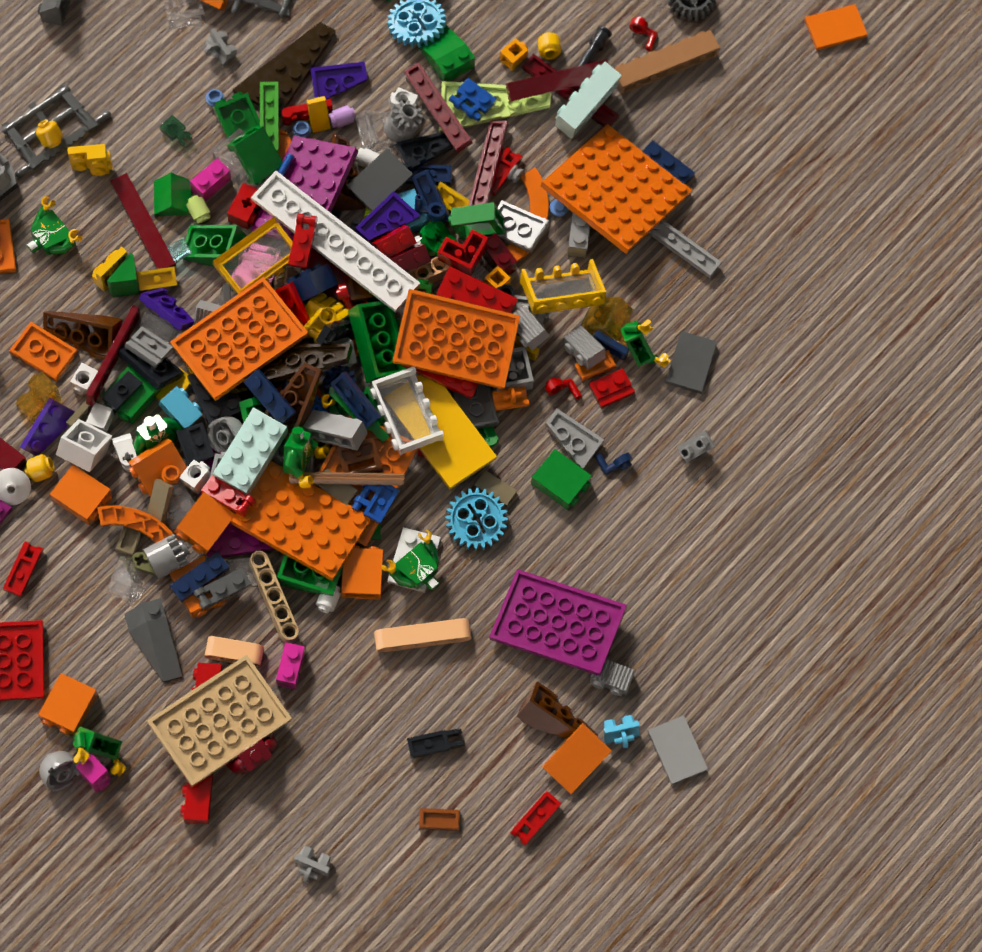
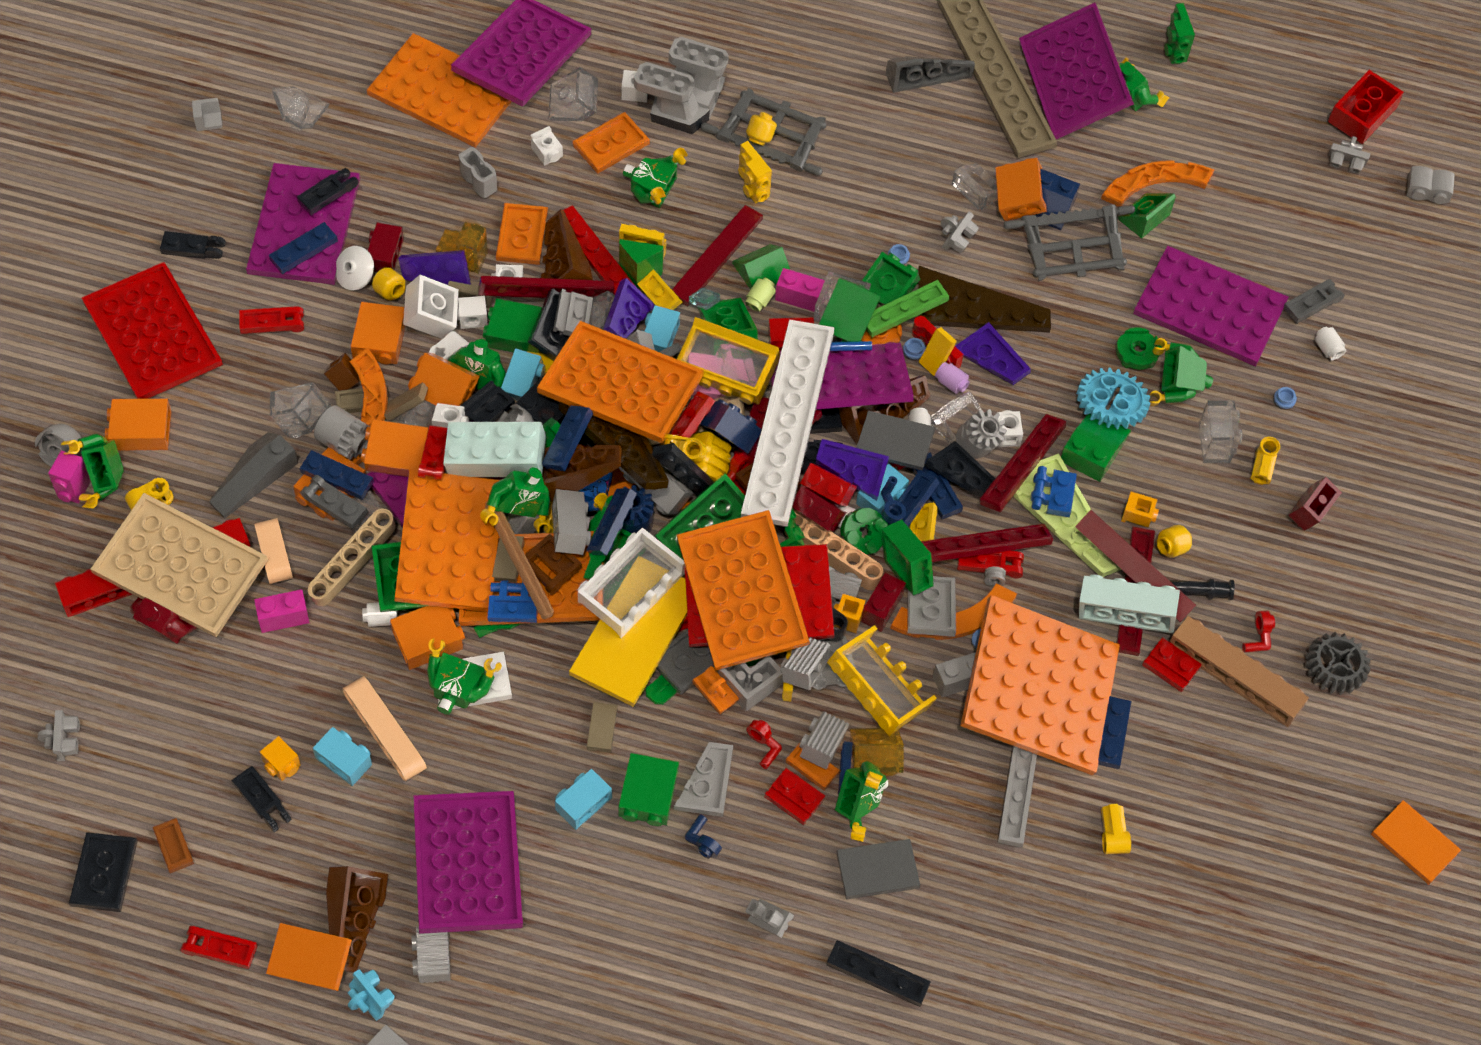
camera: 65 degrees right, 10 degrees down
(103, 305) = (596, 253): none -> red plate
(103, 536) = (342, 373): none -> reddish brown panel
(122, 391) = (509, 312): black plate -> none
(138, 727) = (150, 489): none -> yellow piece
(171, 474) = (437, 394): orange plate -> none
(175, 129) = (838, 235): clear green plate -> none
(190, 292) = (662, 326): none -> medium azure brick
(302, 241) = (767, 387): red plate -> none
(411, 717) = (280, 759): none -> light orange brick
(430, 672) = (342, 755): none -> medium azure brick
(435, 876) = (103, 872): none -> black tile
(464, 256) = (858, 561): red brick -> none
(491, 511) = (570, 731): medium azure gear -> none
(546, 526) = (583, 798): none -> medium azure brick
(637, 100) = (1172, 664): none -> red plate
(744, 203) = (1115, 837): none -> yellow piece
(765, 399) = (878, 973): none -> black plate

